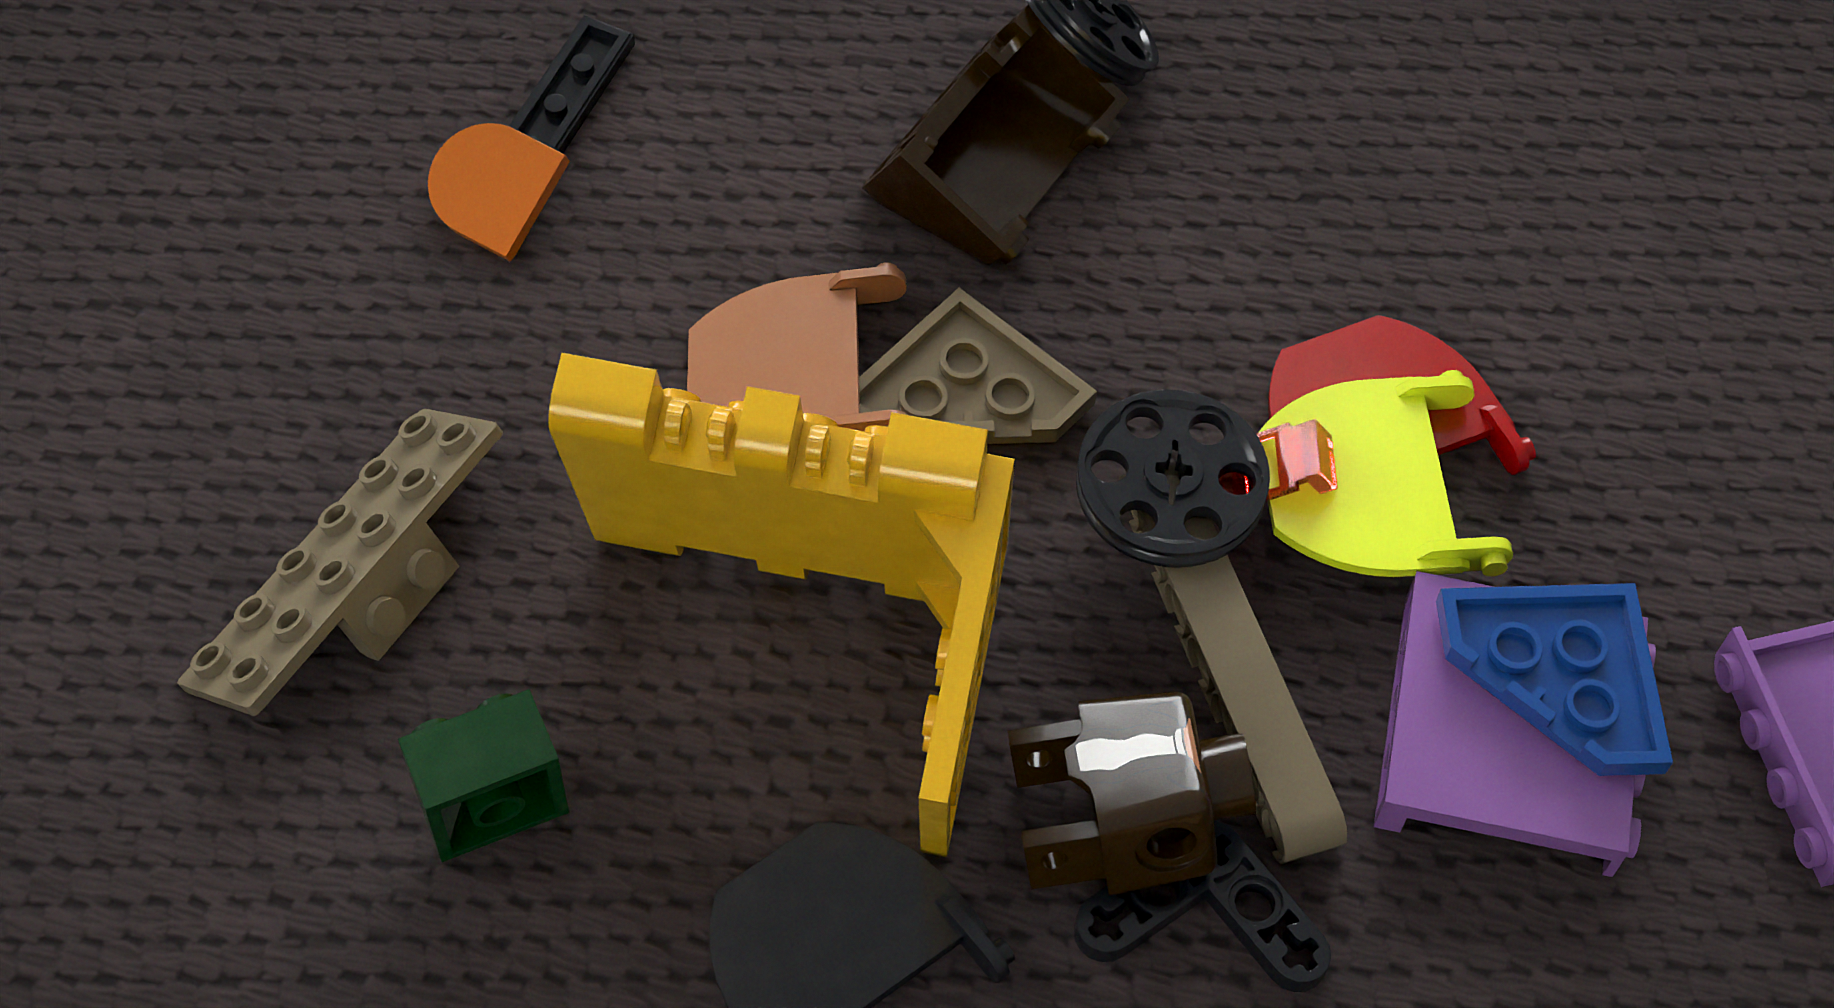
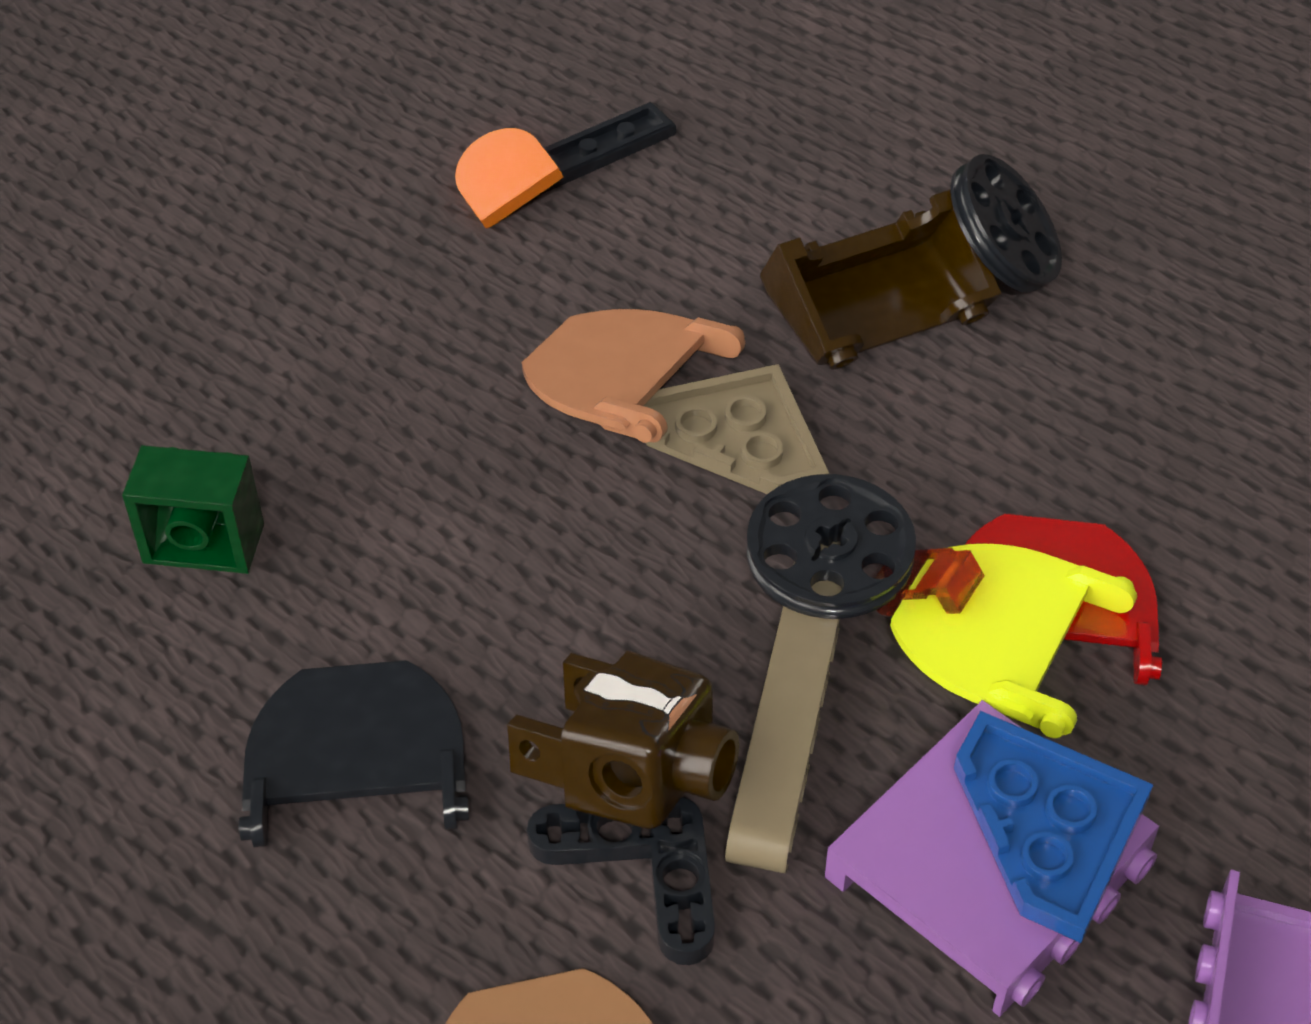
camera: 35 degrees right, 10 degrees down
(360, 568) = (232, 366): dark tan bracket -> none
(800, 495) = (545, 428): yellow bracket -> none

